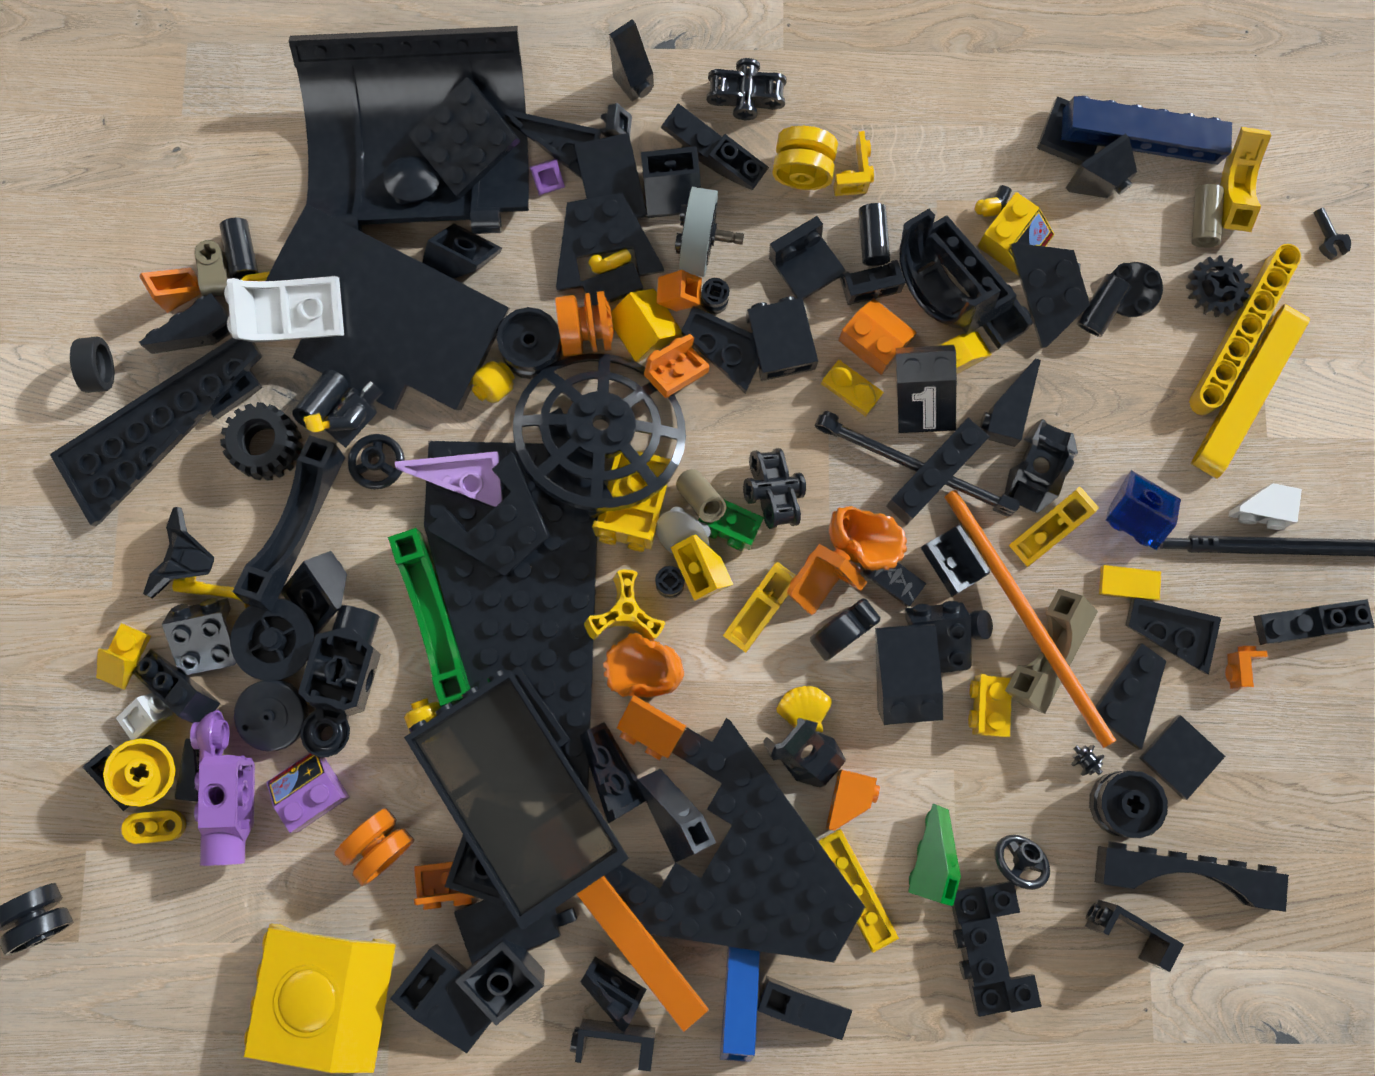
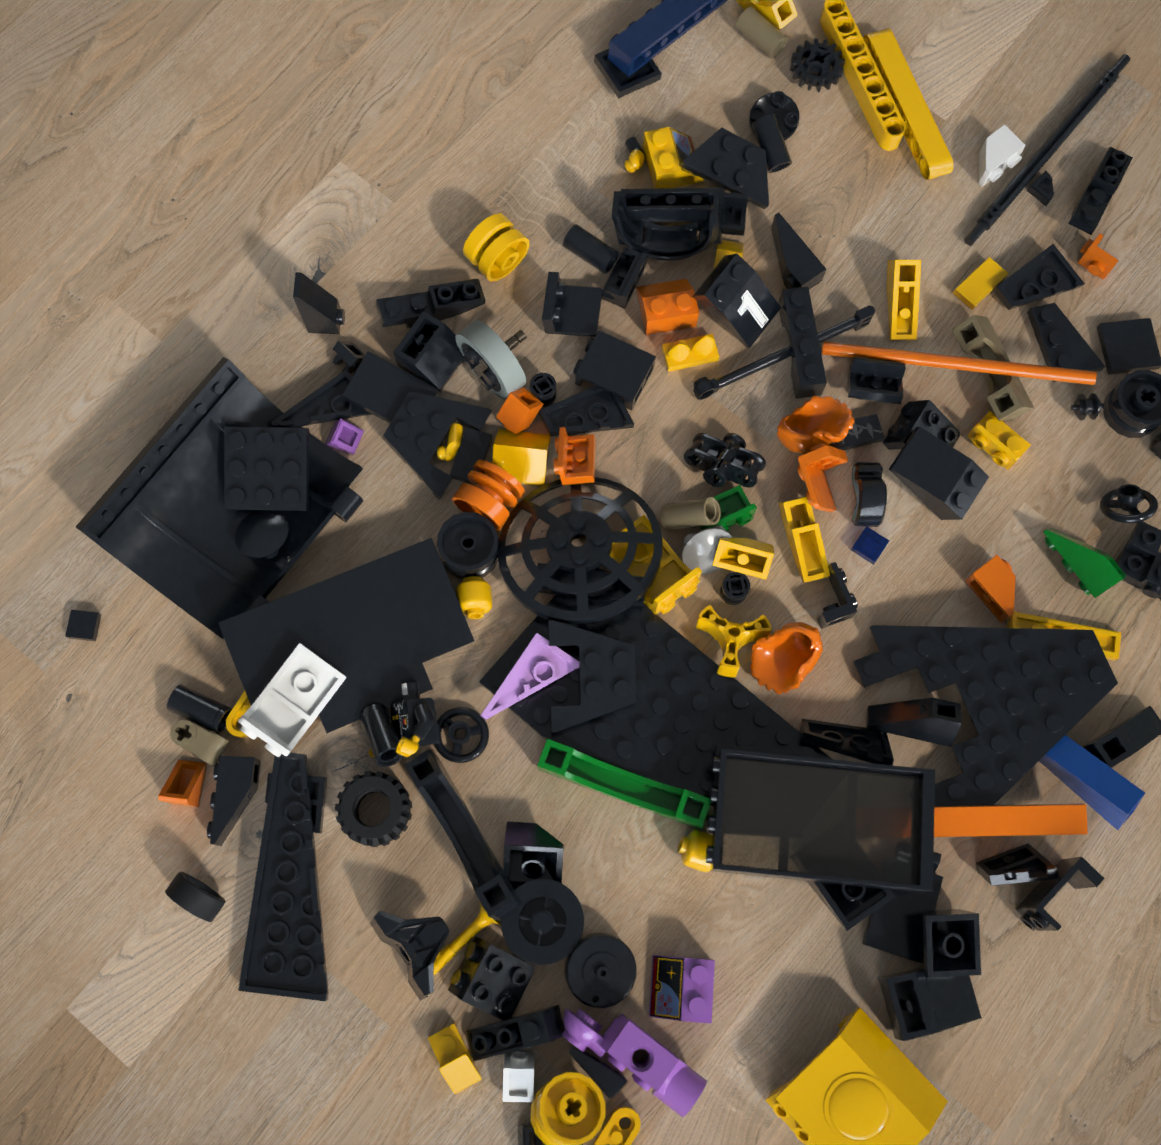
camera: 50 degrees left, 5 degrees down
(237, 112) = (83, 625): none -> black tile
(339, 678) = (616, 892): black brick -> none
(371, 843) = (772, 964): orange wheel -> none
(431, 888) = (834, 942): orange bracket -> none
(458, 251) = (351, 543): black slope -> none
(650, 727) = (837, 685): orange slope -> none
(715, 680) = (834, 613): none -> black bracket
(755, 90) = (404, 248): black axle -> none
(802, 666) = (870, 545): none -> clear blue tile
(804, 703) = (903, 568): yellow animal -> none
(819, 765) = (941, 602): black piece -> none
(853, 182) = (540, 221): yellow bracket -> none
(981, 625) = (937, 399): black tile -> none
(1037, 489) = (864, 257): black piece -> none
(1106, 171) = (678, 66): black slope -> none
(1144, 510) = (938, 233): clear blue slope -> none
(1273, 570) = (1042, 188): none -> black tile

